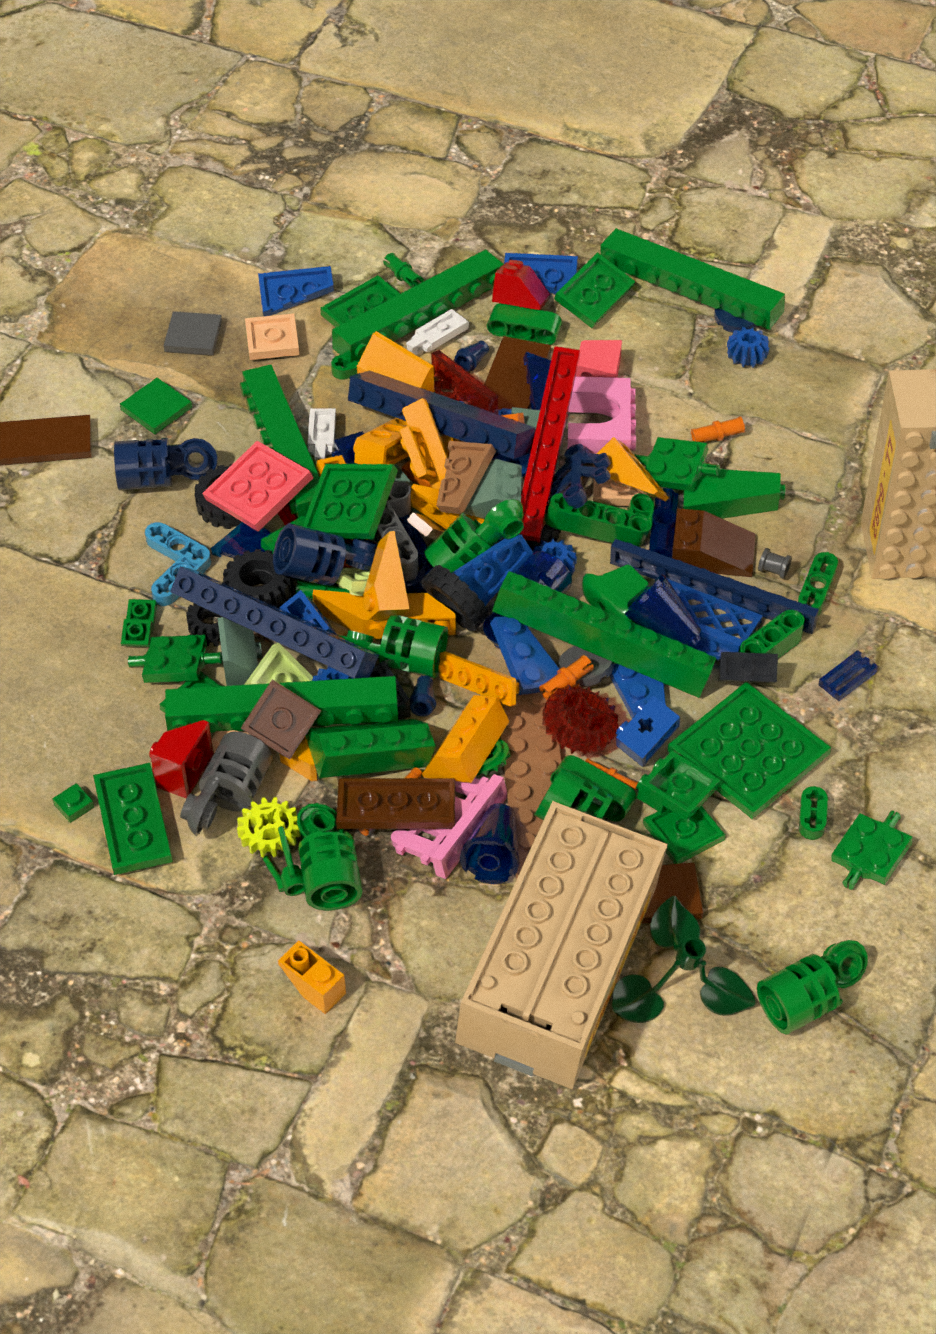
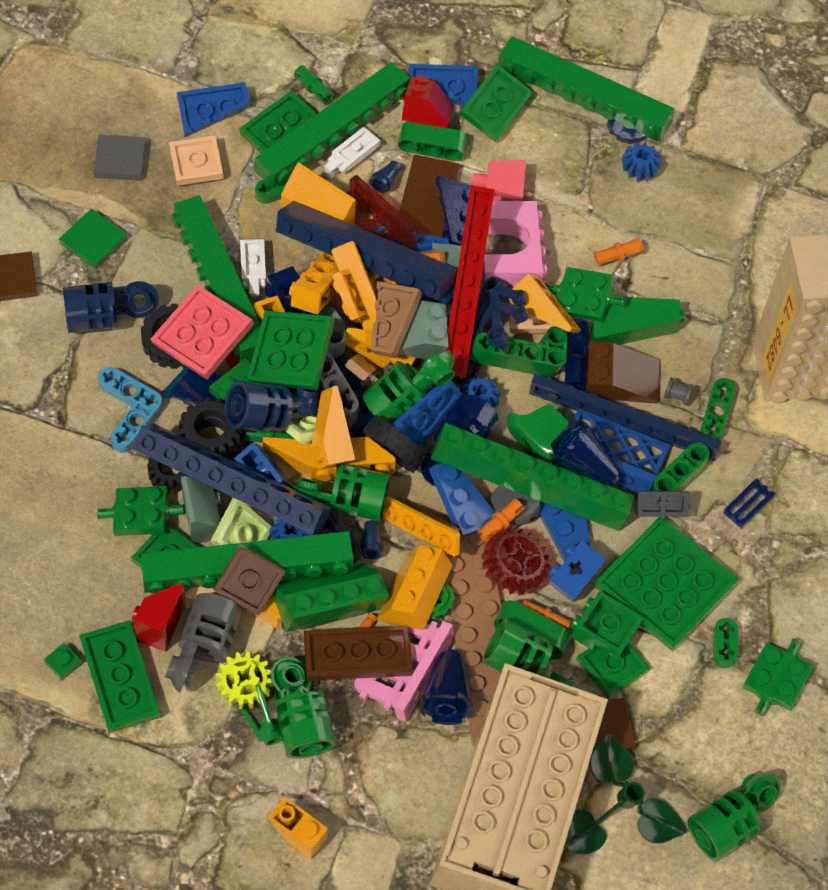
camera: 10 degrees left, 10 degrees up
(139, 623) = (103, 474): green slope -> none

